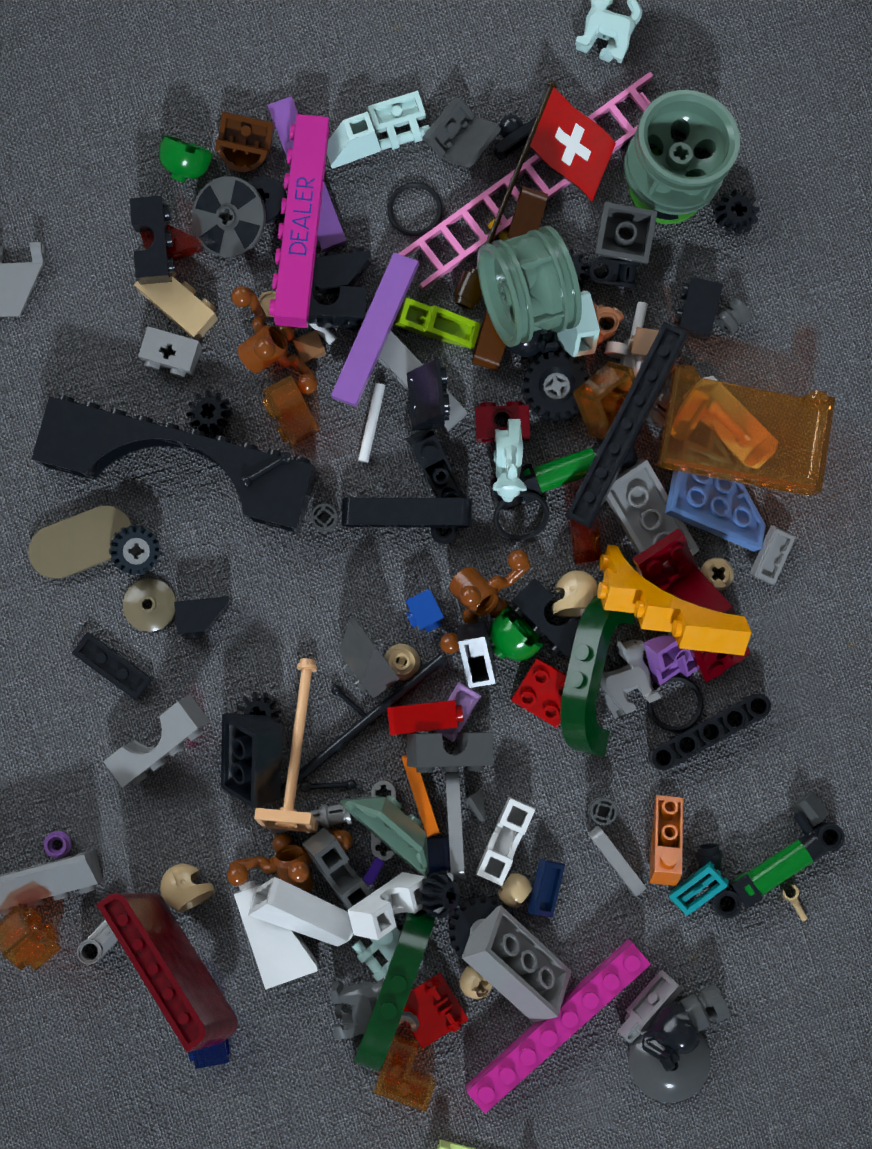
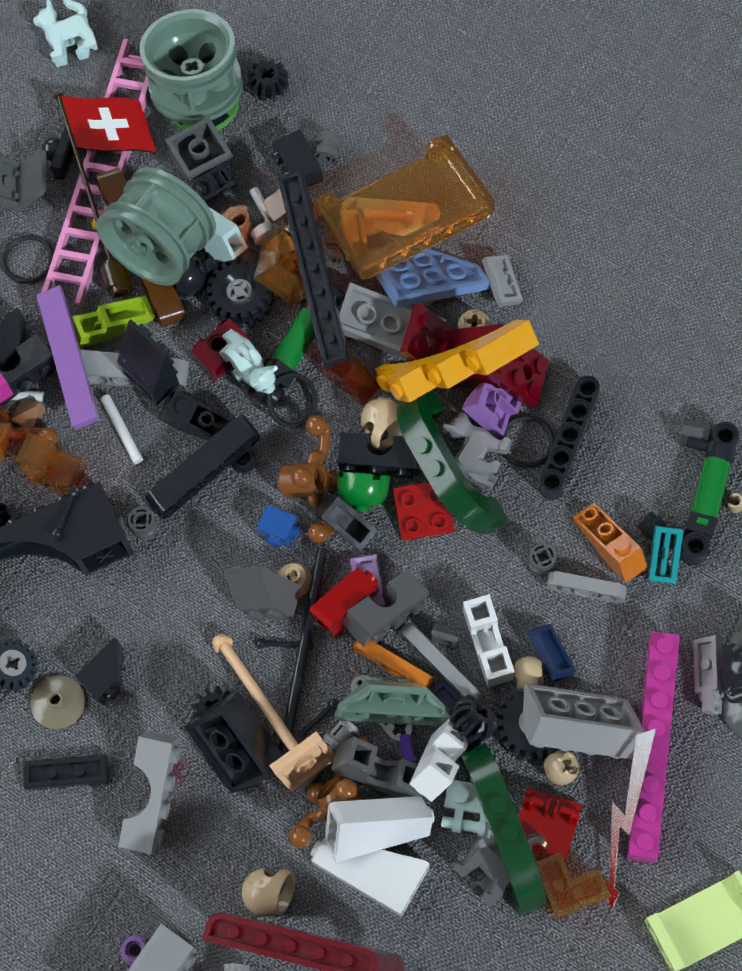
camera: 30 degrees left, 15 degrees down
(536, 1034) = (640, 759): none -> sticker

